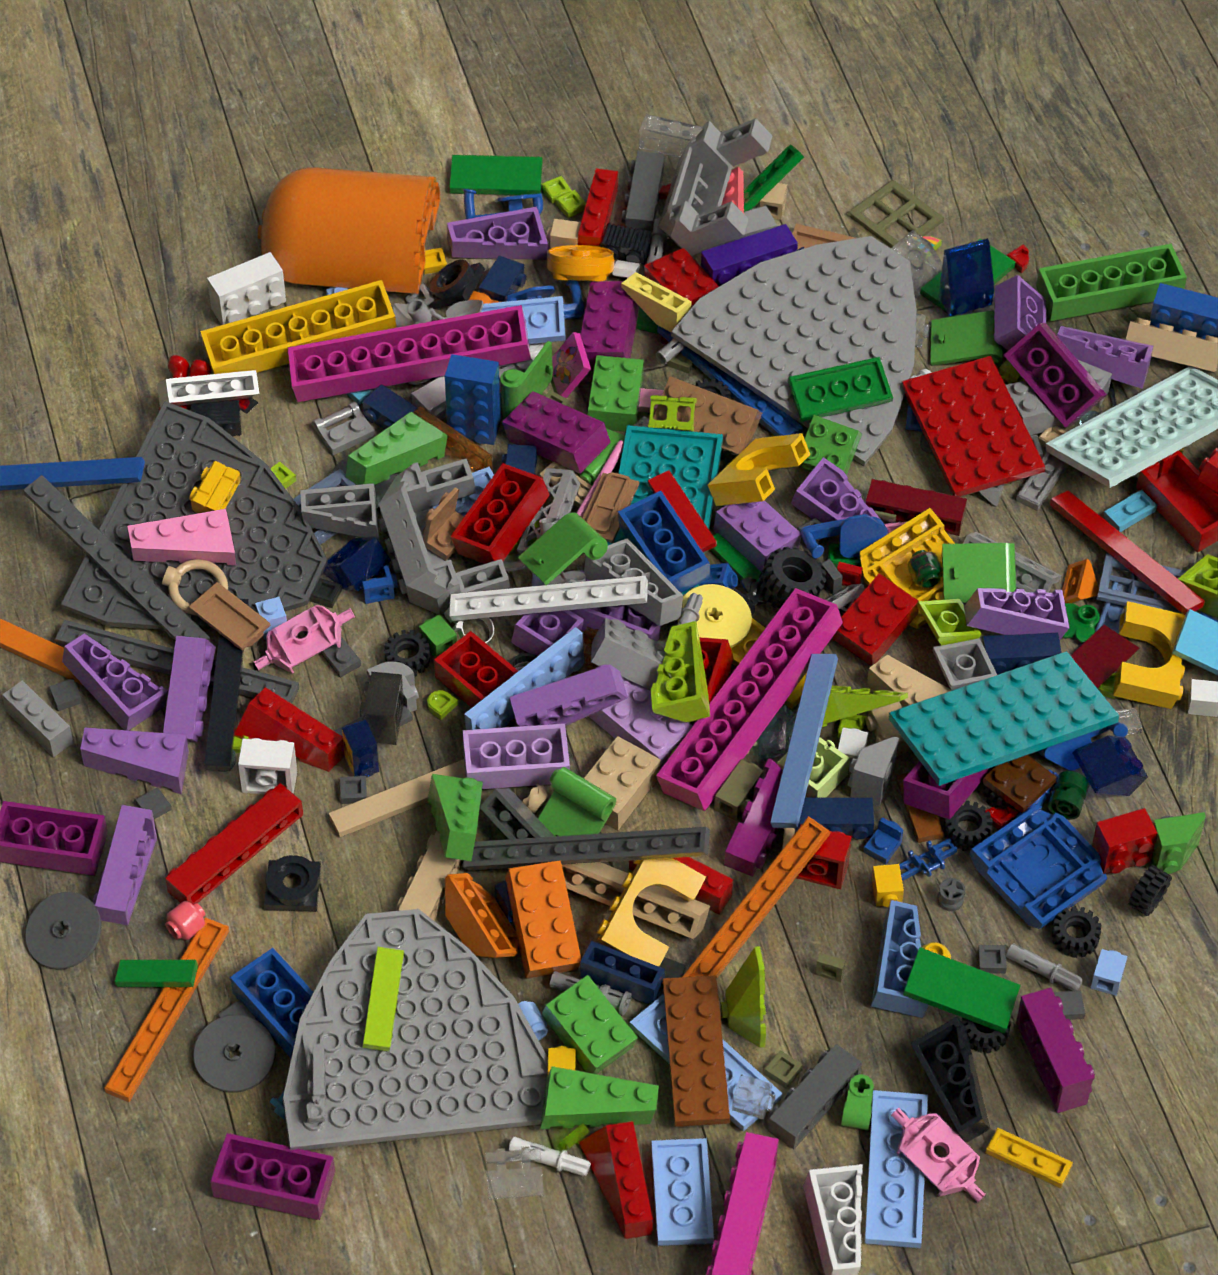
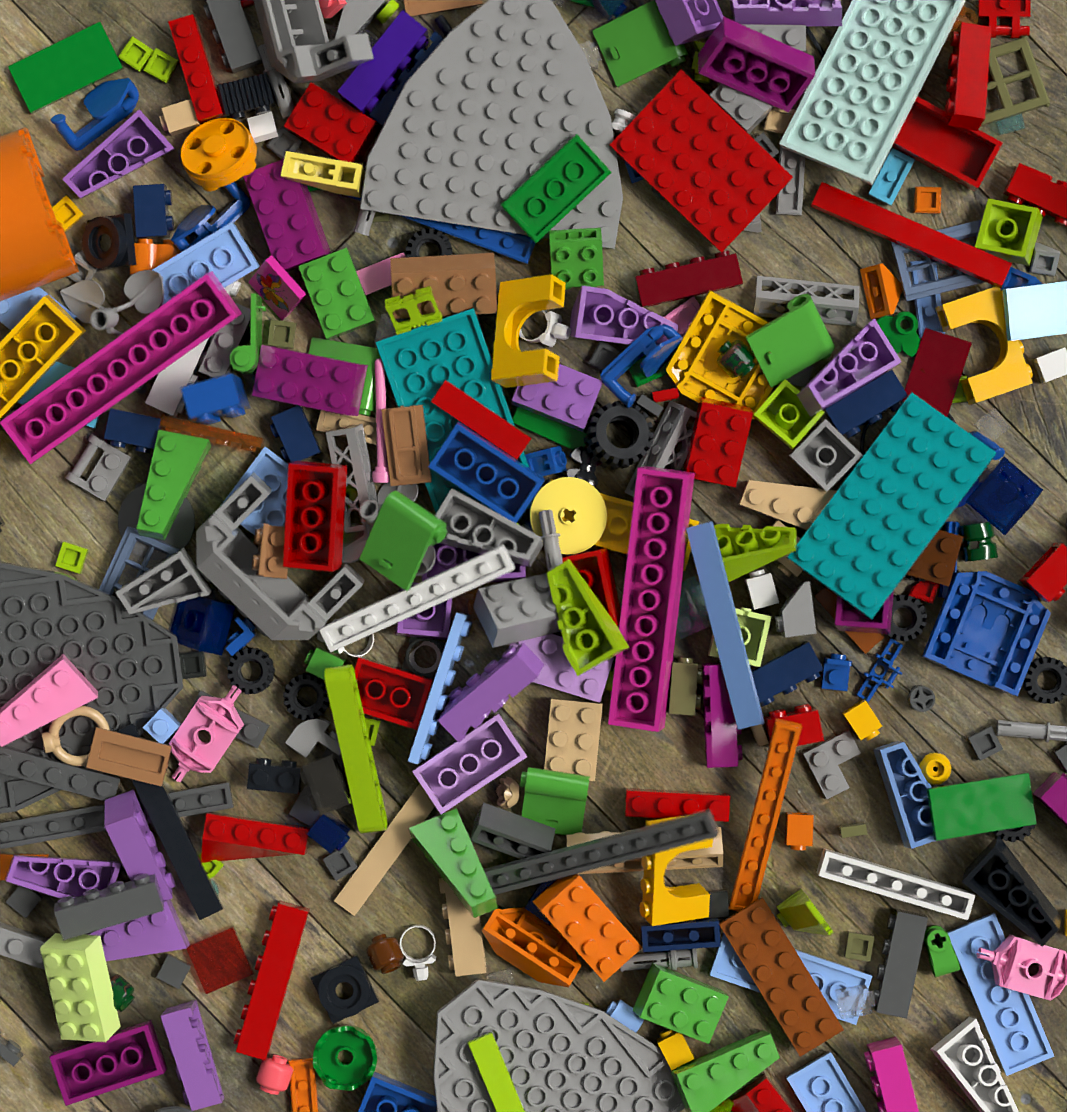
camera: 25 degrees left, 35 degrees up
(68, 757) = (80, 988): none -> yellowish green brick
(92, 791) = (122, 992): none -> dark green head
(136, 705) = (108, 906): none -> dark grey brick
(198, 814) = (220, 960): none -> clear red tile
(215, 489) = (37, 637): yellow brick -> none
(256, 919) = (338, 1074): none -> green plate
(266, 765) = (257, 893): white brick -> none
(338, 694) = (274, 777): none -> black brick
(346, 871) = (385, 954): none -> reddish brown head
(373, 626) = (265, 663): none -> black tyre
(373, 893) = (420, 970): none -> white piece
(424, 695) = (356, 748): none -> lime beam
(780, 944) = (799, 830): none -> orange brick
(783, 489) = (554, 330): none -> white piece
(839, 905) = (825, 760): none -> light grey plate
(846, 1024) = (895, 884): none -> white brick
(886, 517) = (665, 308): olive piece -> none
(1153, 542) = (927, 200): none -> orange tile

